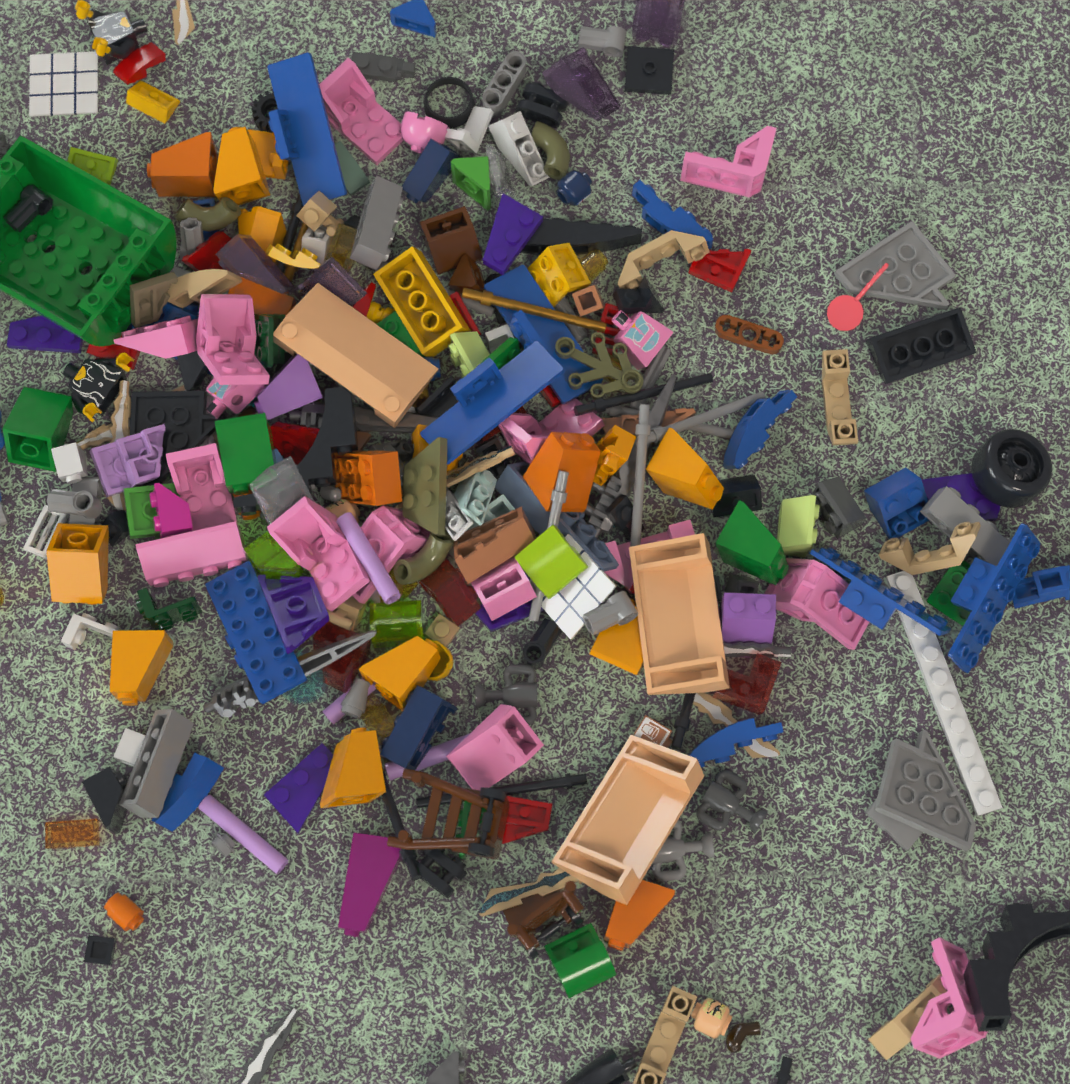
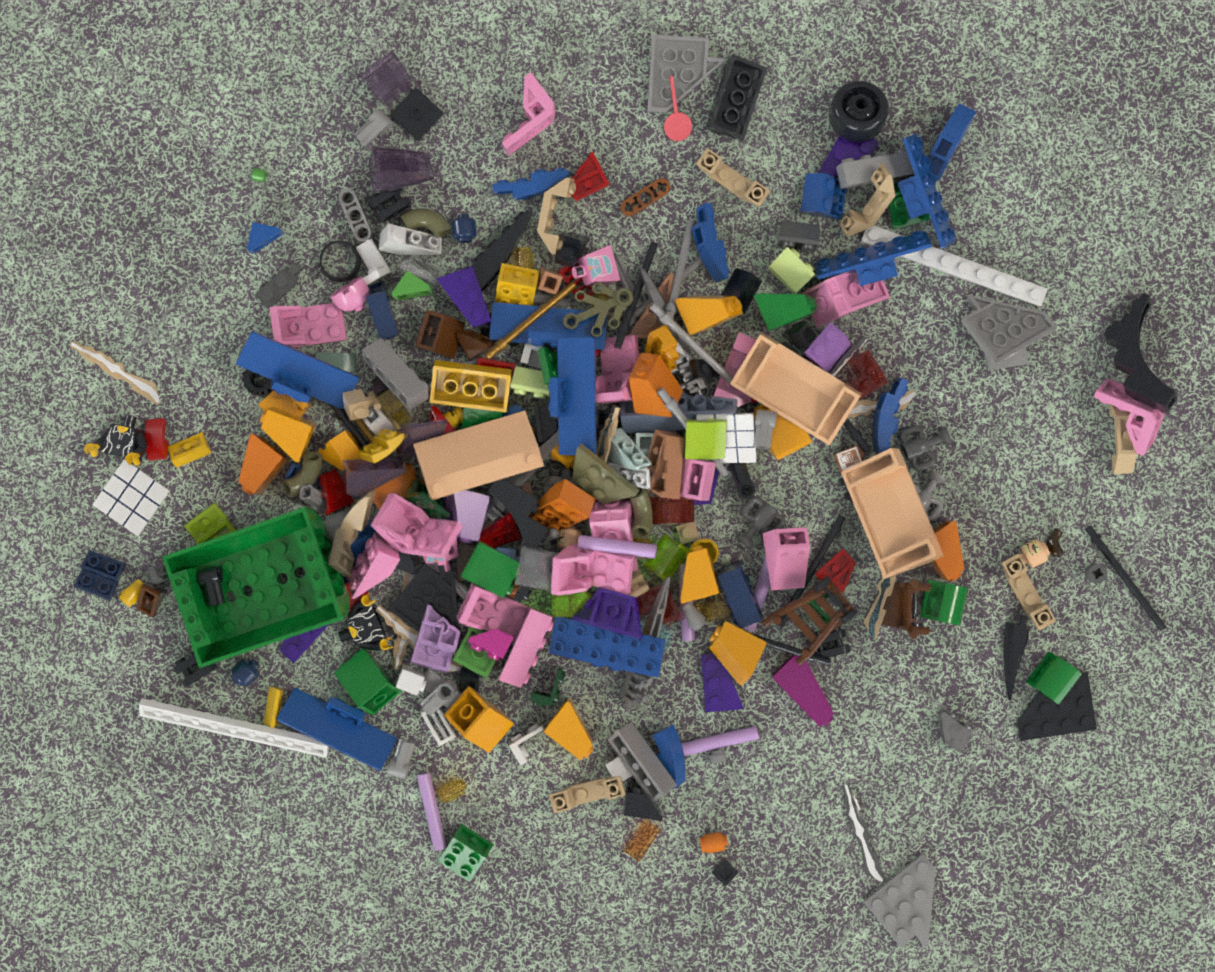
camera: 50 degrees left, 15 degrees up
(78, 731) = (569, 797): none -> tan slope

